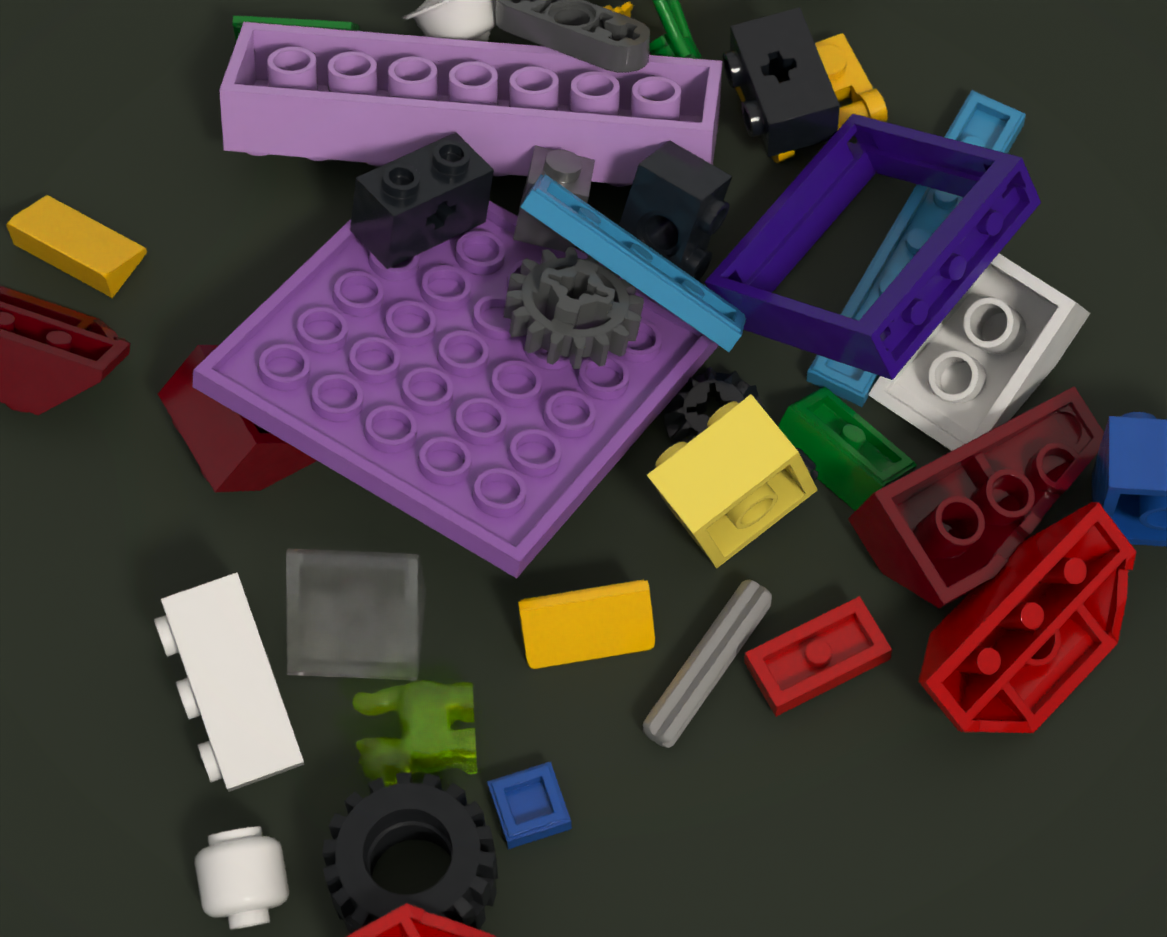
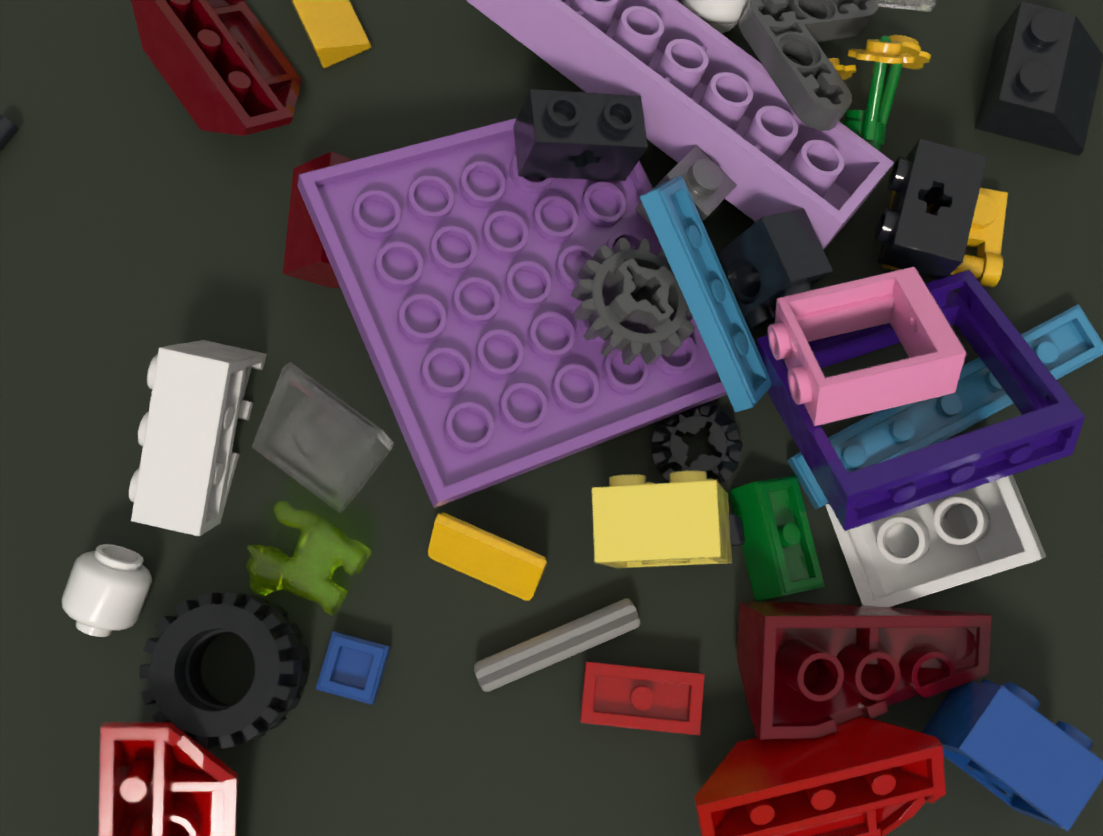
camera: 30 degrees right, 15 degrees up
(805, 167) = (851, 306): none -> bright pink window

